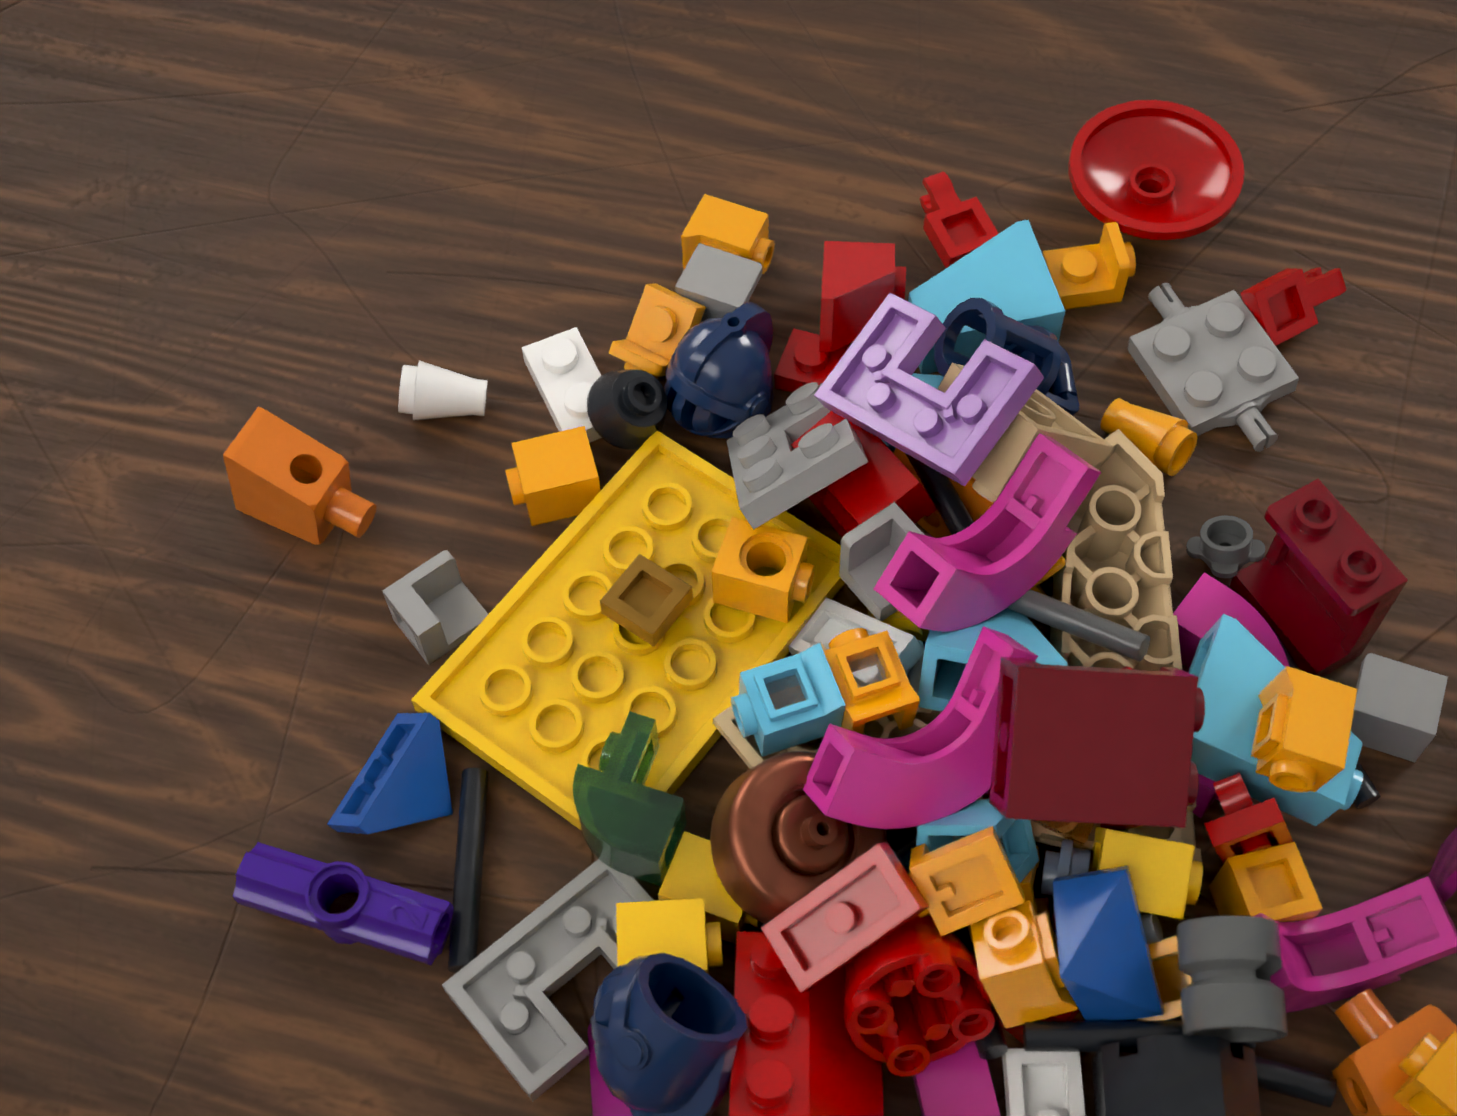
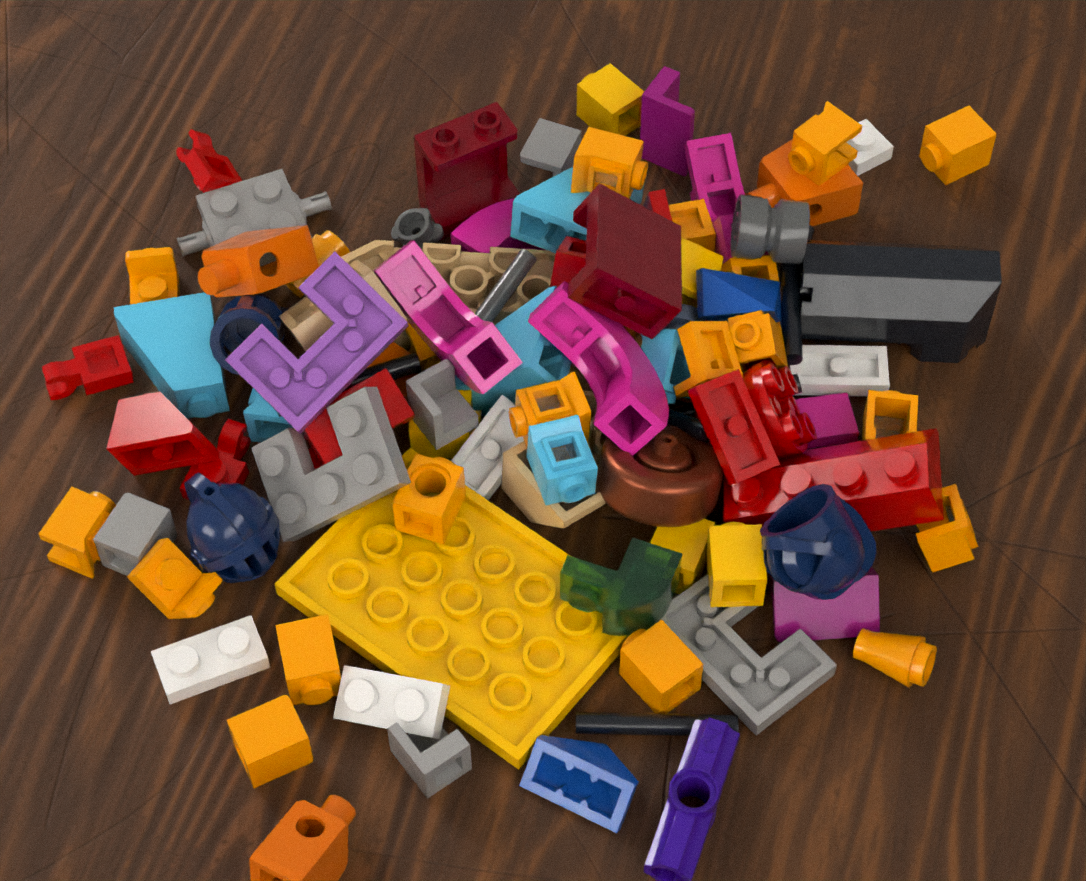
camera: 90 degrees left, 5 degrees down
(439, 393) = (206, 764): white cone -> none
(450, 439) = (270, 740): none -> light orange panel
(496, 562) = (388, 698): none -> white plate
(534, 860) = (660, 667): none -> light orange brick
(627, 407) = (252, 599): black cone -> none
(646, 600) = (448, 578): pearl gold plate -> none
(1104, 344) = (235, 267): none -> orange torso
(1156, 169) = (74, 224): red dish -> none

